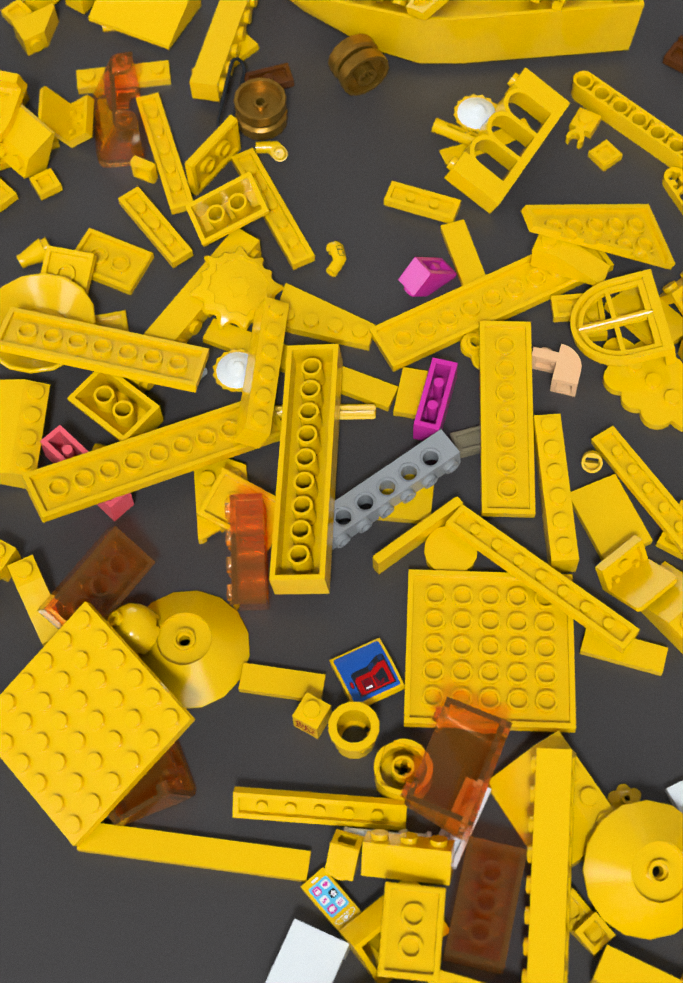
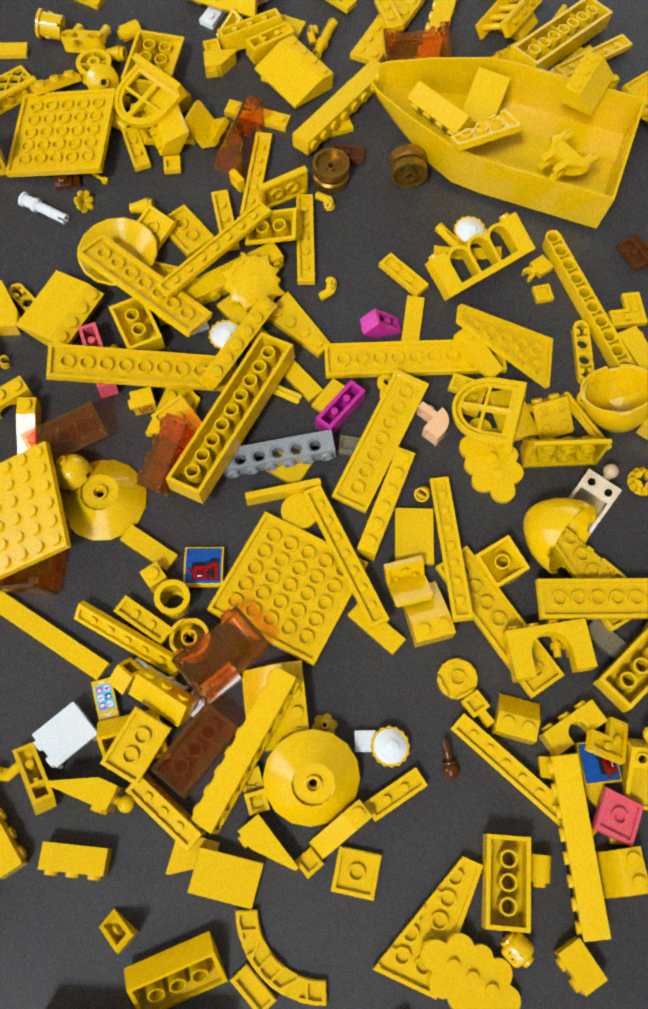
camera: 20 degrees right, 5 degrees up
(170, 268) = (213, 249): none -> yellow tile
(173, 500) = (142, 401): none -> yellow brick
(226, 86) = (334, 137): black piece -> none
(325, 776) = (143, 620): none -> yellow plate

